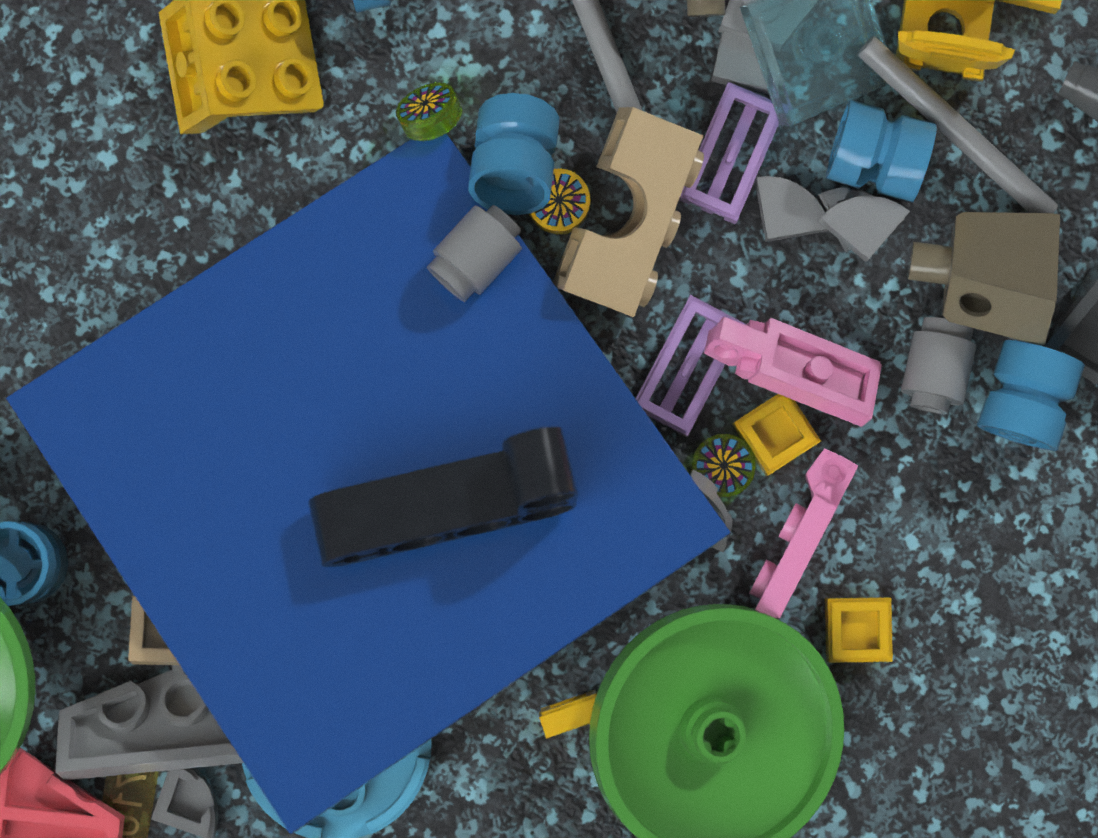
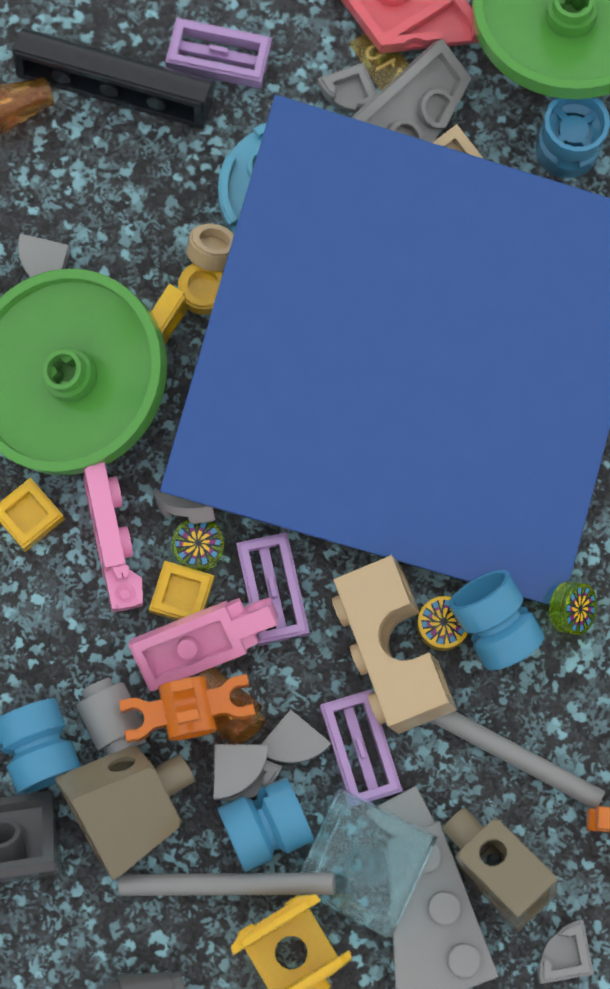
camera: 140 degrees right, 10 degrees down
(446, 501) = (351, 357): black beam -> none
(467, 749) = (209, 246): none -> tan tile
(475, 251) = (466, 534): light grey brick -> none
(508, 718) = (199, 288): none -> yellow tile
(822, 288) = (229, 728): none -> clear orange cone
(872, 306) = (187, 708): none -> orange pin

